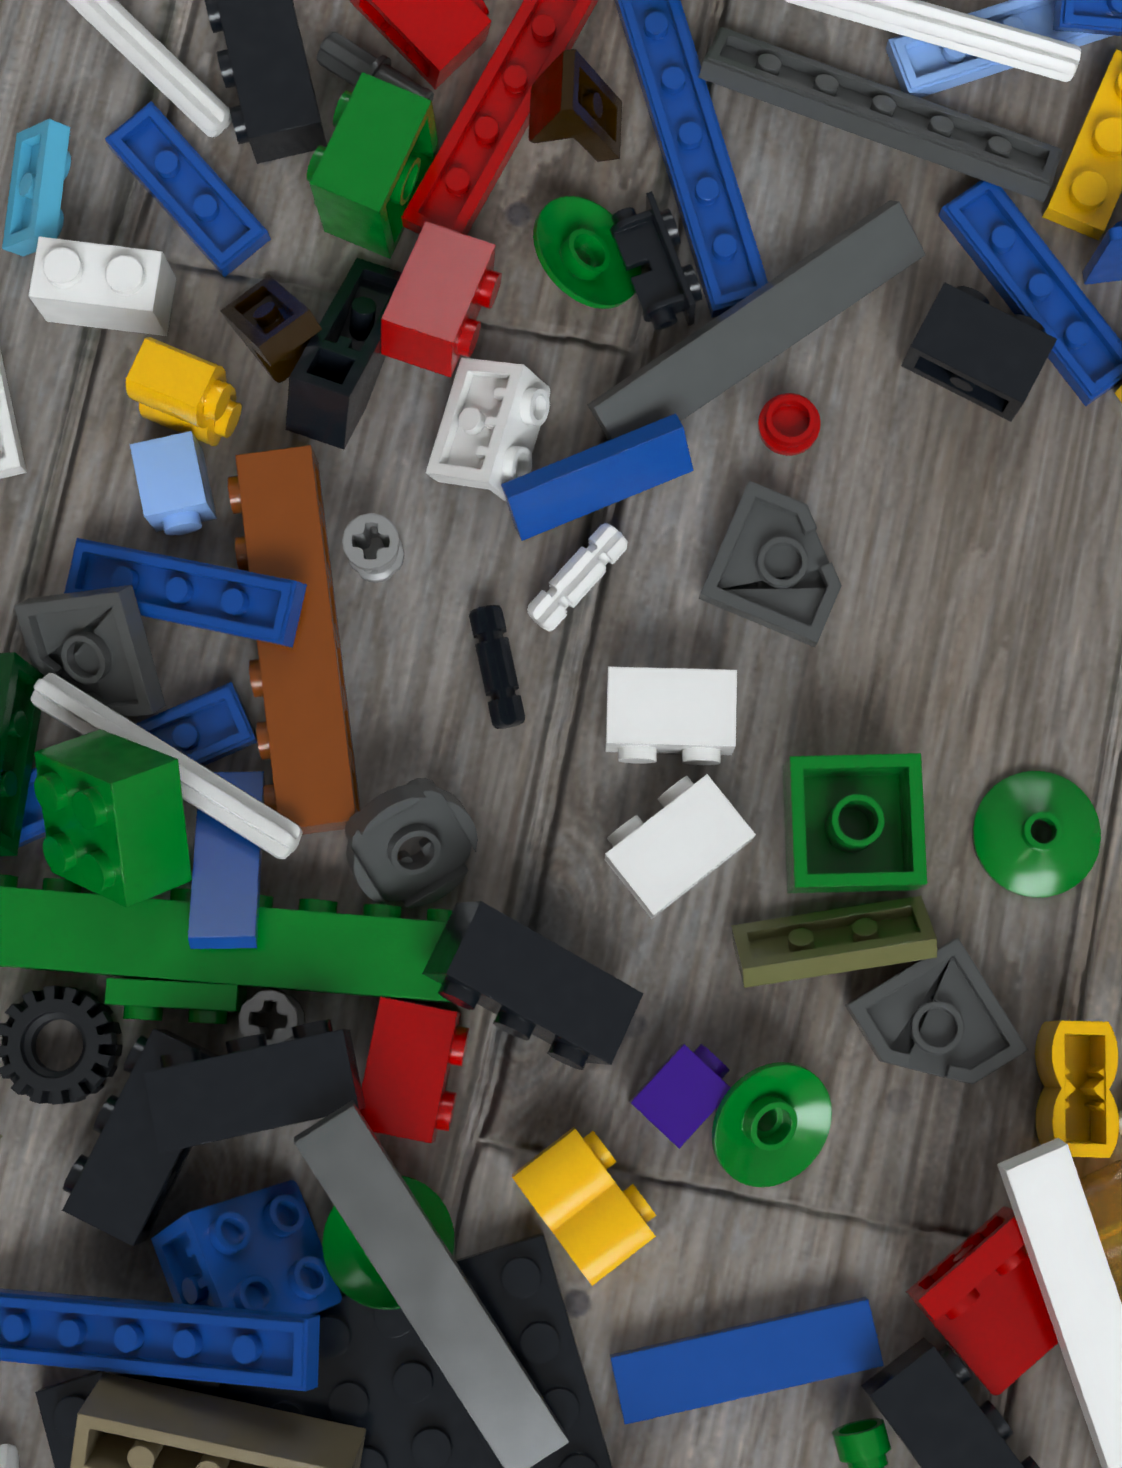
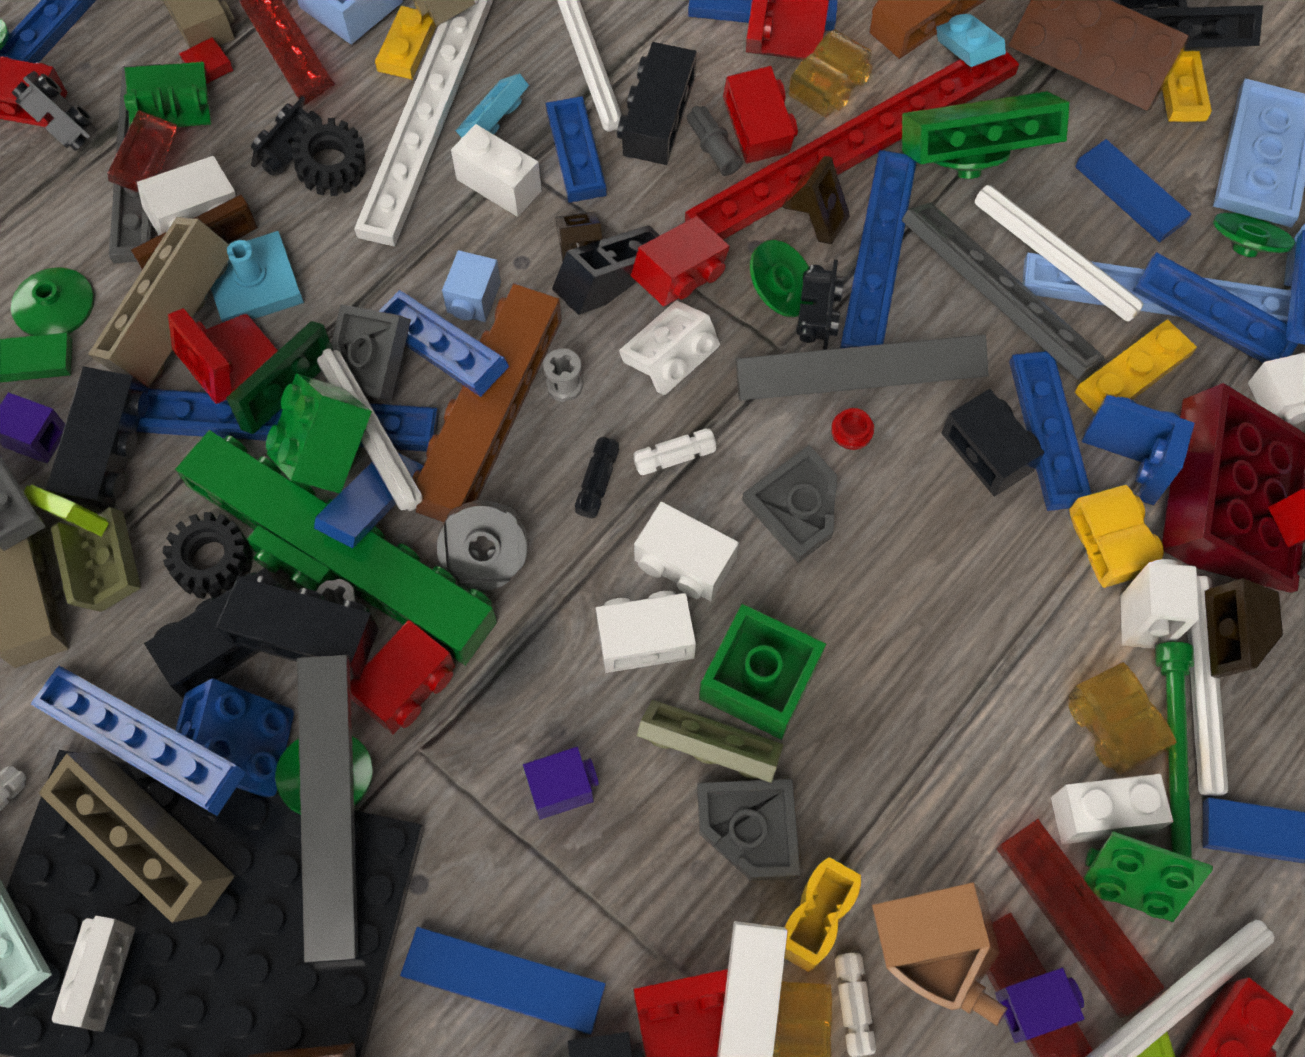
camera: 25 degrees right, 15 degrees down
(183, 392) = (504, 236): yellow brick -> none
(373, 163) = (683, 172): green brick -> none
(531, 985) = (504, 660): black brick -> none
(585, 1205) = (458, 818): yellow brick -> none
(598, 477) = (718, 400): blue tile -> none
(787, 1136) = (609, 852): green dish -> none
(1005, 839) = (869, 766): green dish -> none

